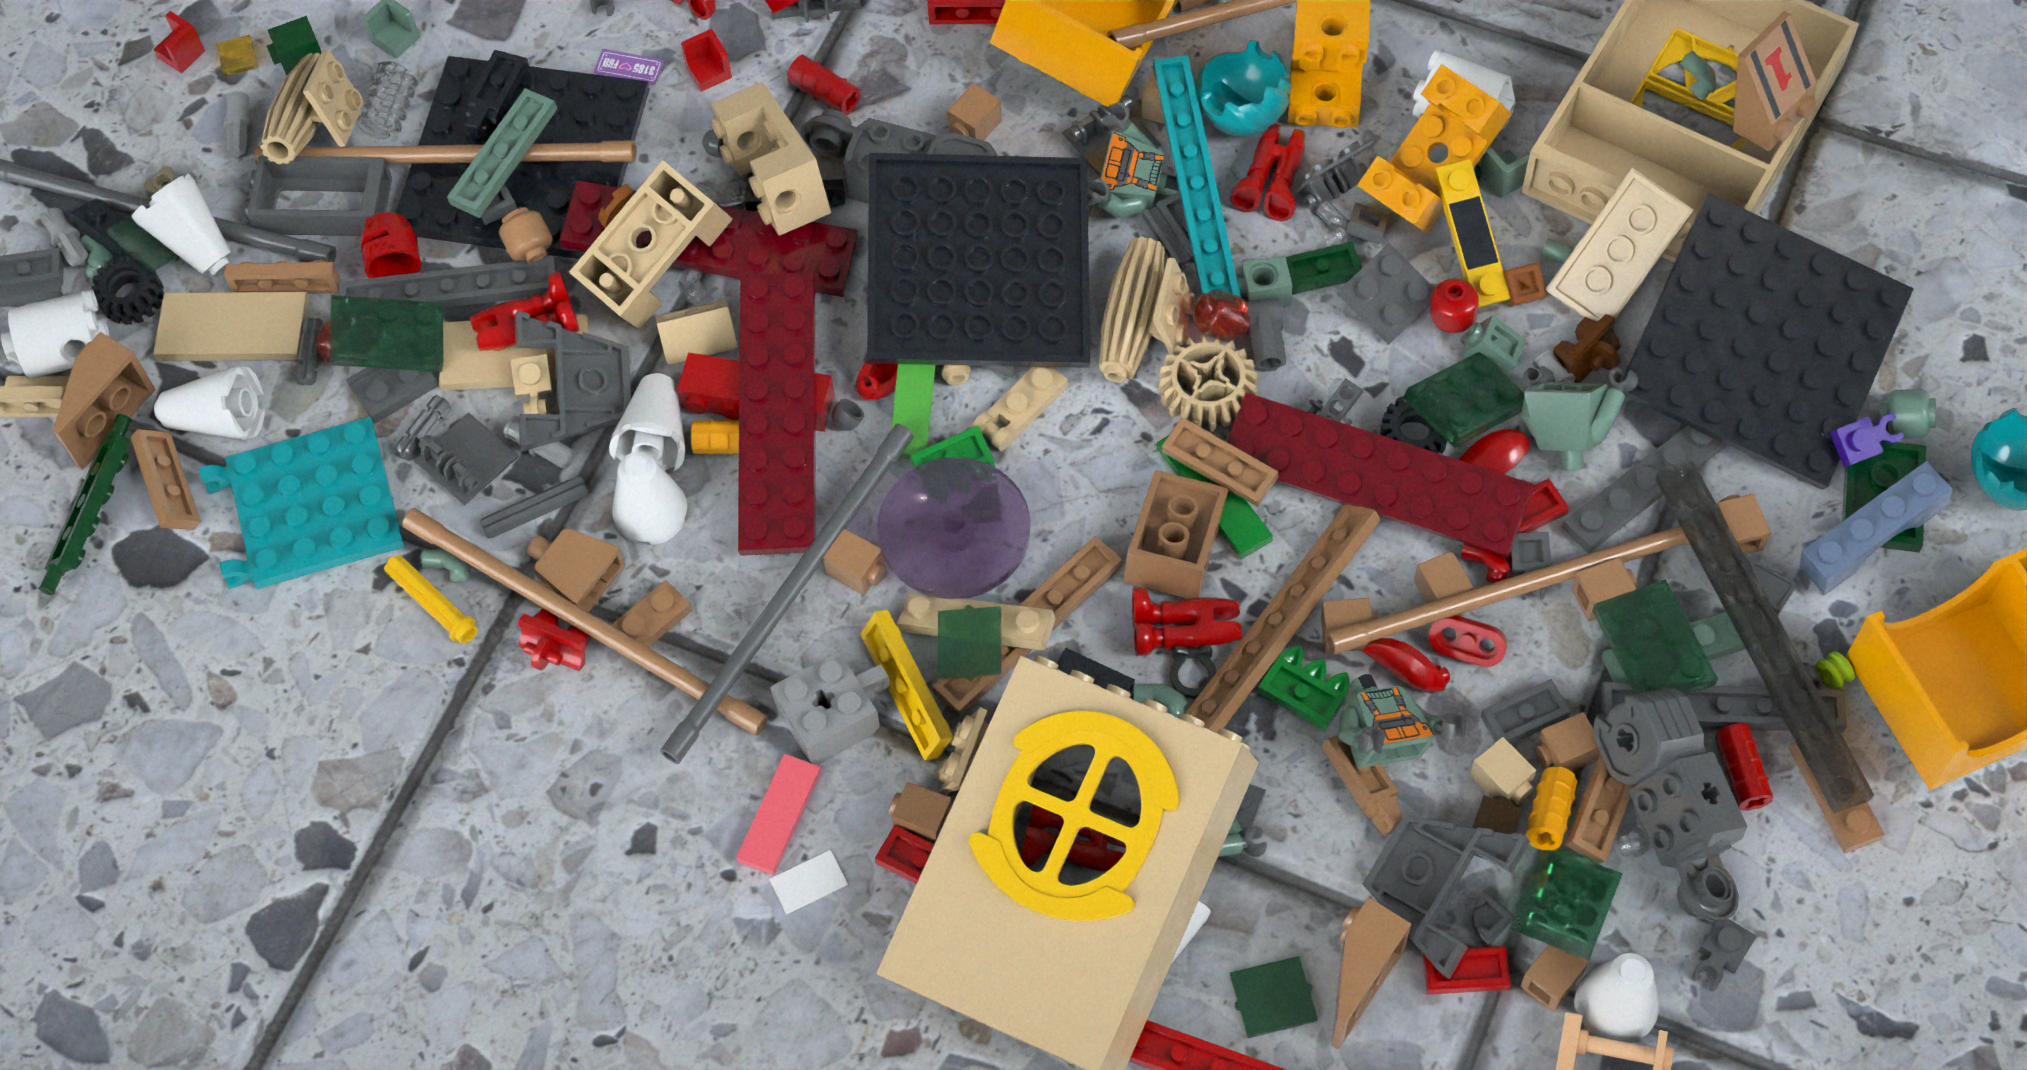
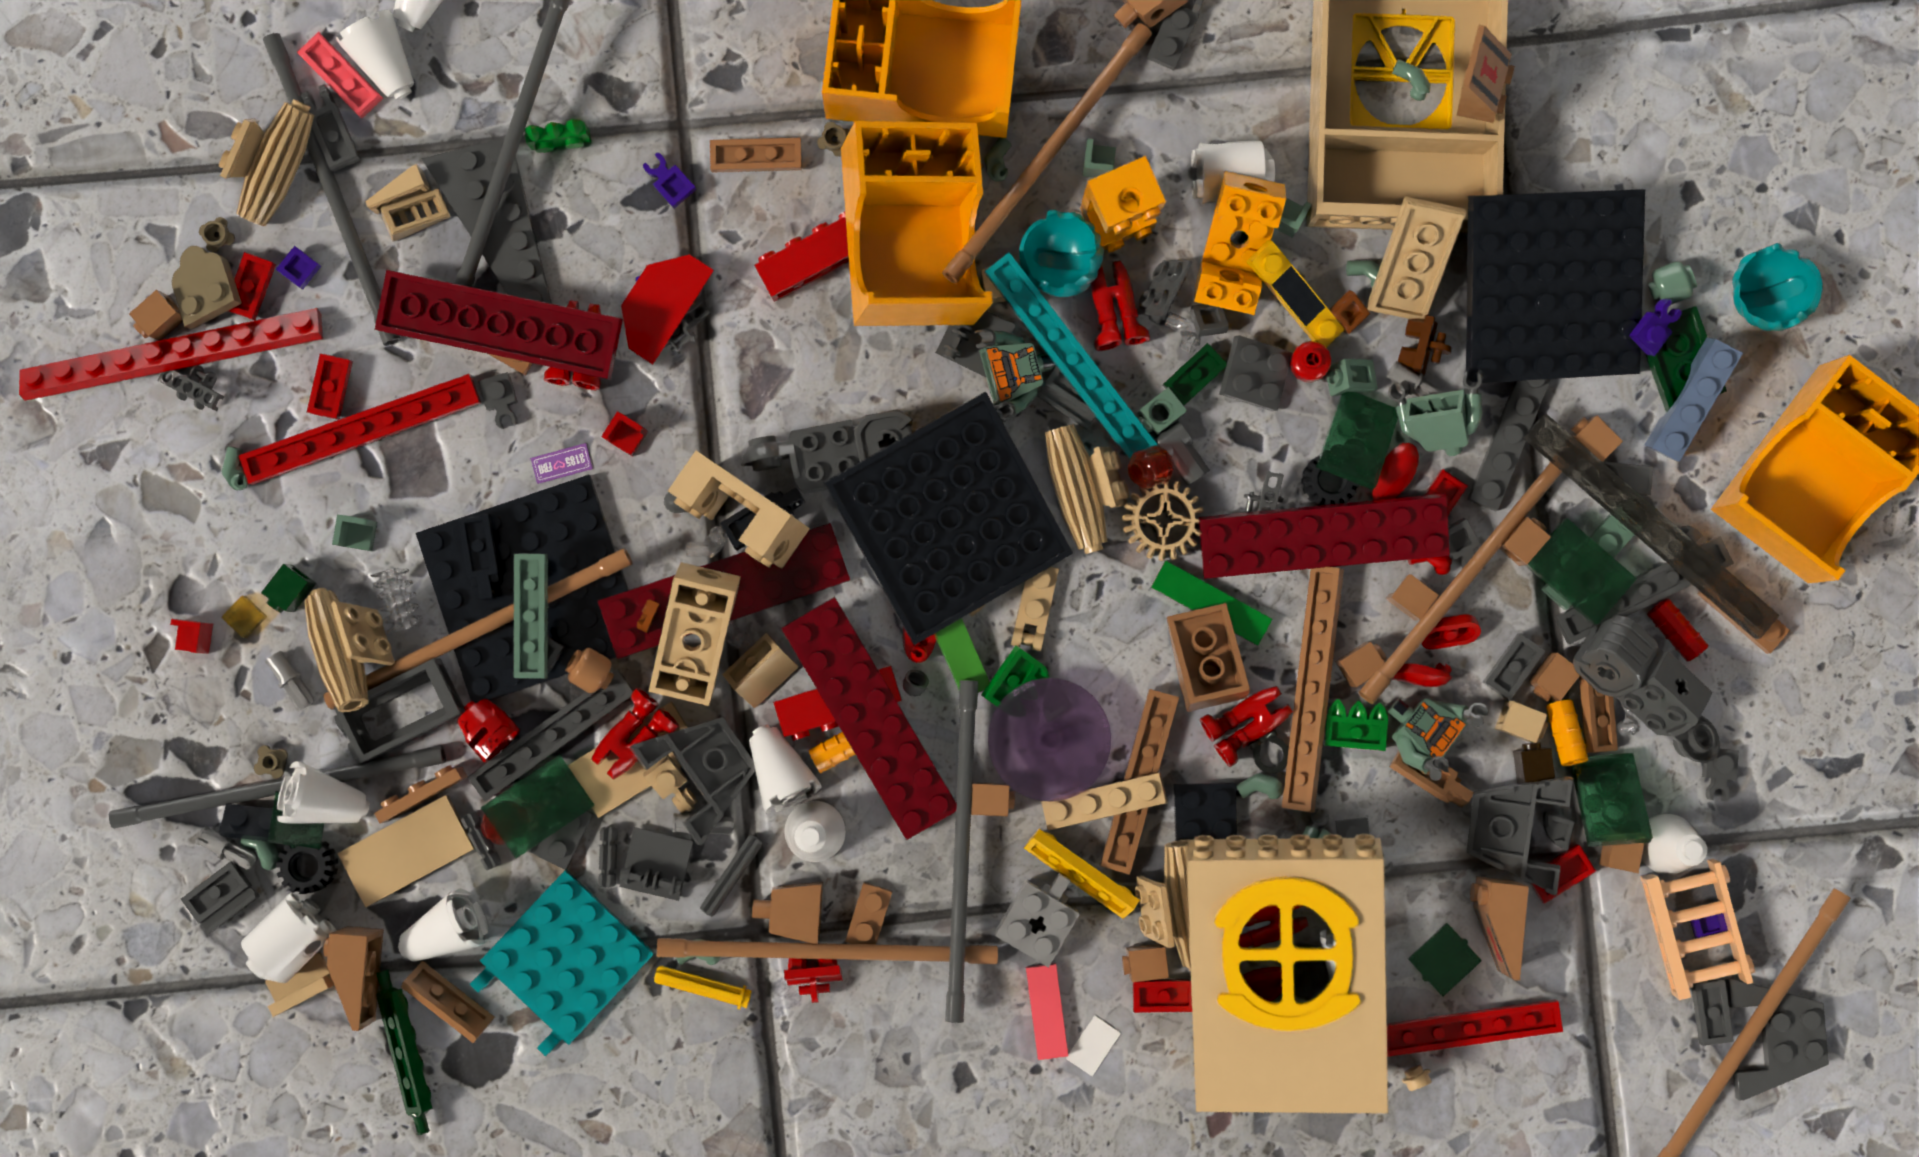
camera: 35 degrees left, 25 degrees up
(823, 84) = (728, 407): red axle -> none
(969, 642) = (1113, 826): clear green piece -> none
(974, 113) = (862, 377): medium nougat brick -> none
(1220, 461) = (1209, 585): medium nougat plate -> none
(1835, 670) = (1707, 522): lime bush -> none

